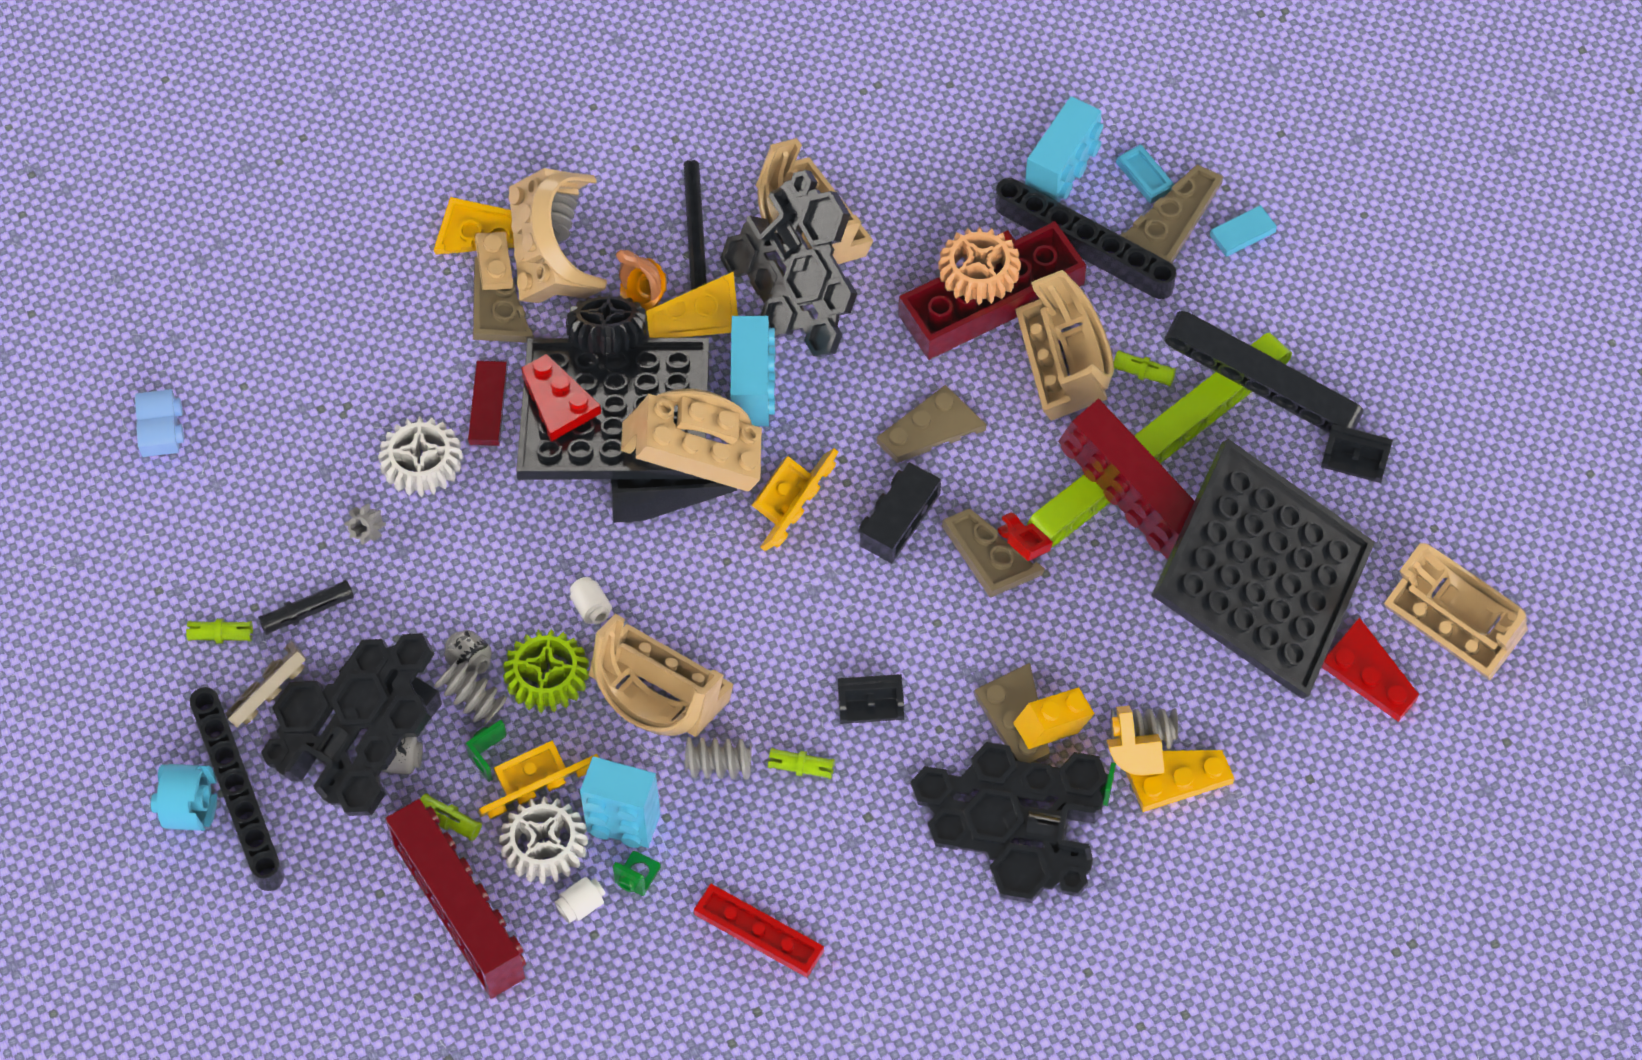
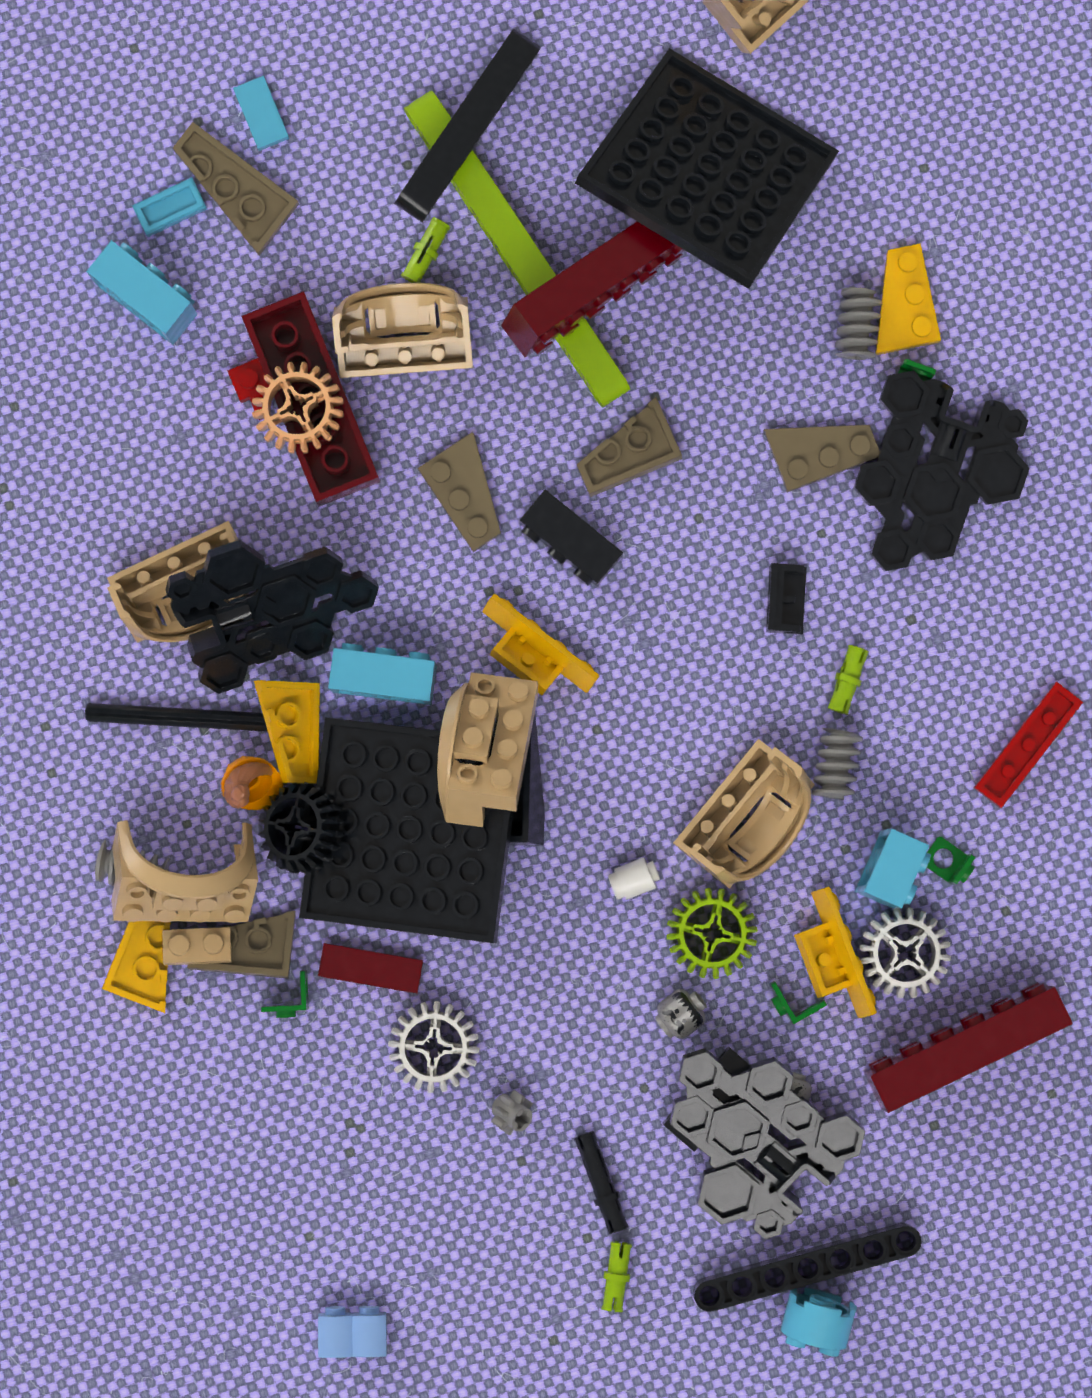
camera: 85 degrees left, 25 degrees up
(245, 708) = (687, 1217): wing -> none
(452, 347) = (286, 1011): none -> green bracket
(467, 826) = (864, 1048): lime pin -> none
(471, 692) = (734, 1012): light grey piece -> none
(558, 397) = (396, 889): wing -> none
(580, 899) = (974, 921): white brick -> none
(1024, 539) = (626, 409): red plate -> none
(1053, 718) = (841, 414): yellow brick -> none
(1093, 249) = (253, 272): black beam -> none
(1134, 753) = (894, 336): yellow brick -> none
(1356, 453) = (562, 46): black hinge -> none
(1370, 671) = (814, 83): red wing -> none

